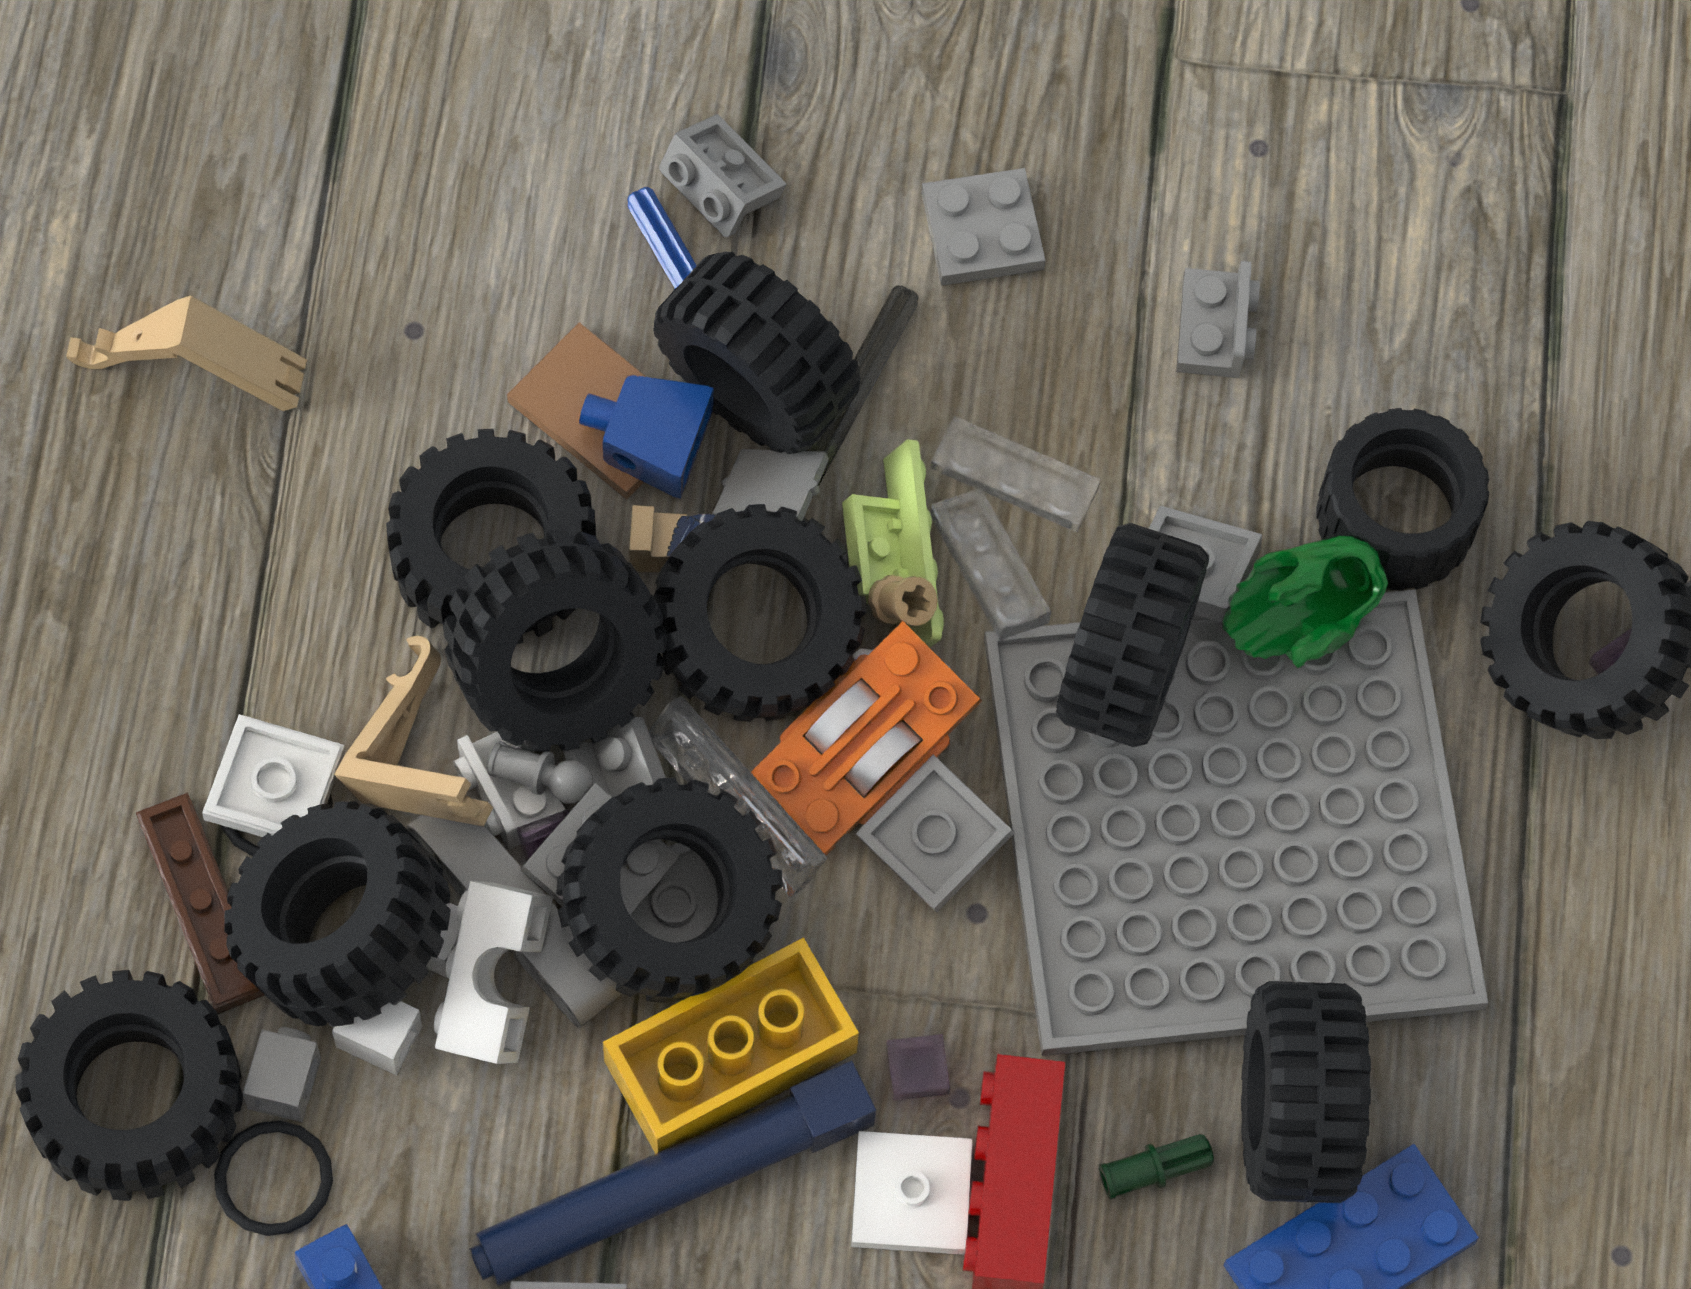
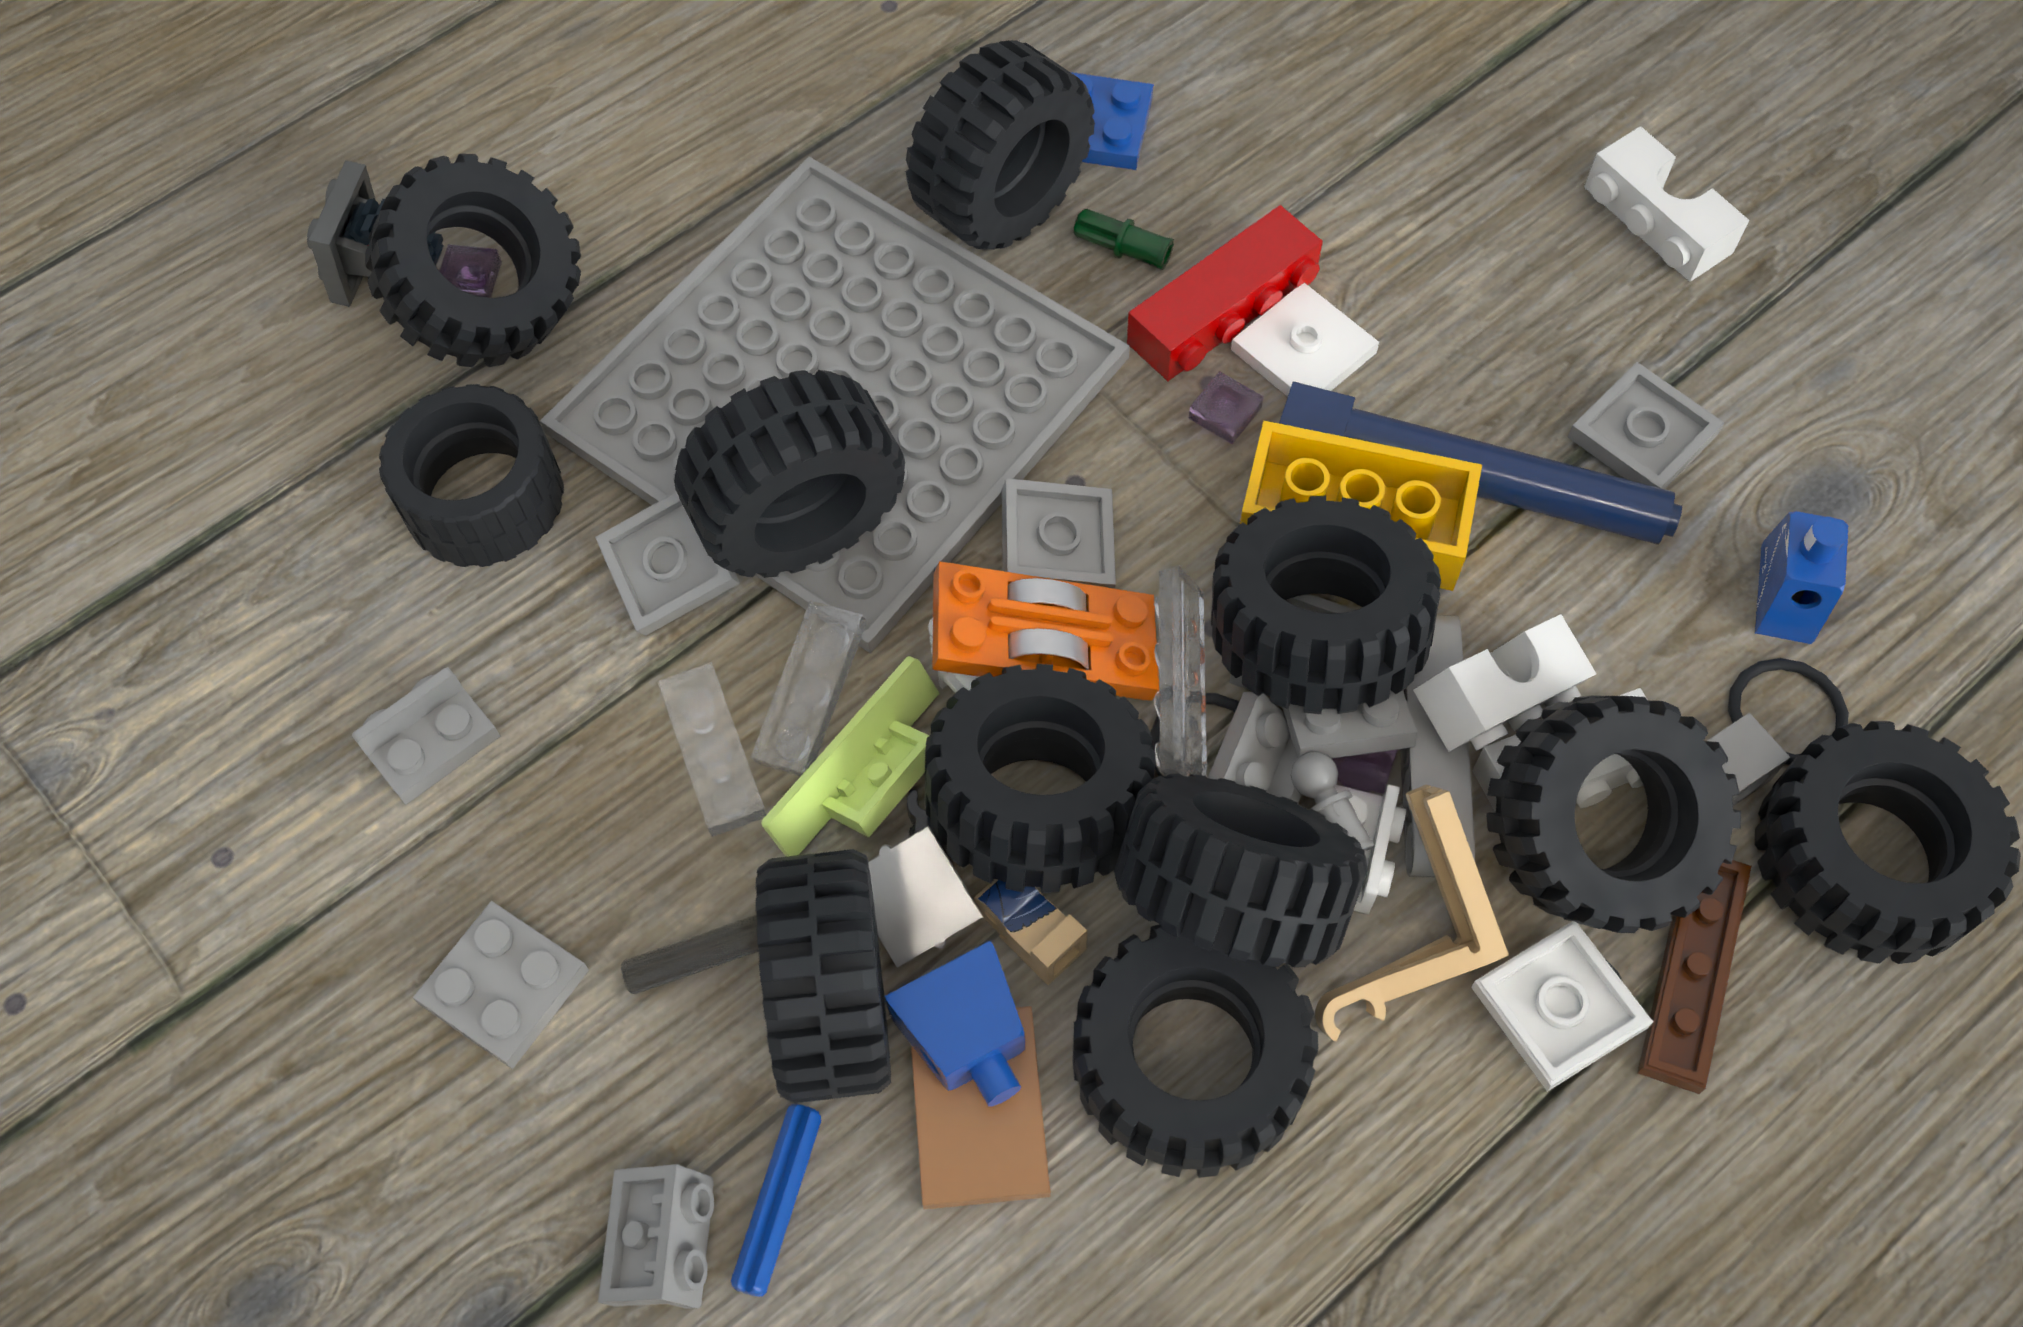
camera: 130 degrees left, 5 degrees down
(918, 597) = (910, 700): tan bush -> none
(1305, 599) = (618, 437): green hair -> none

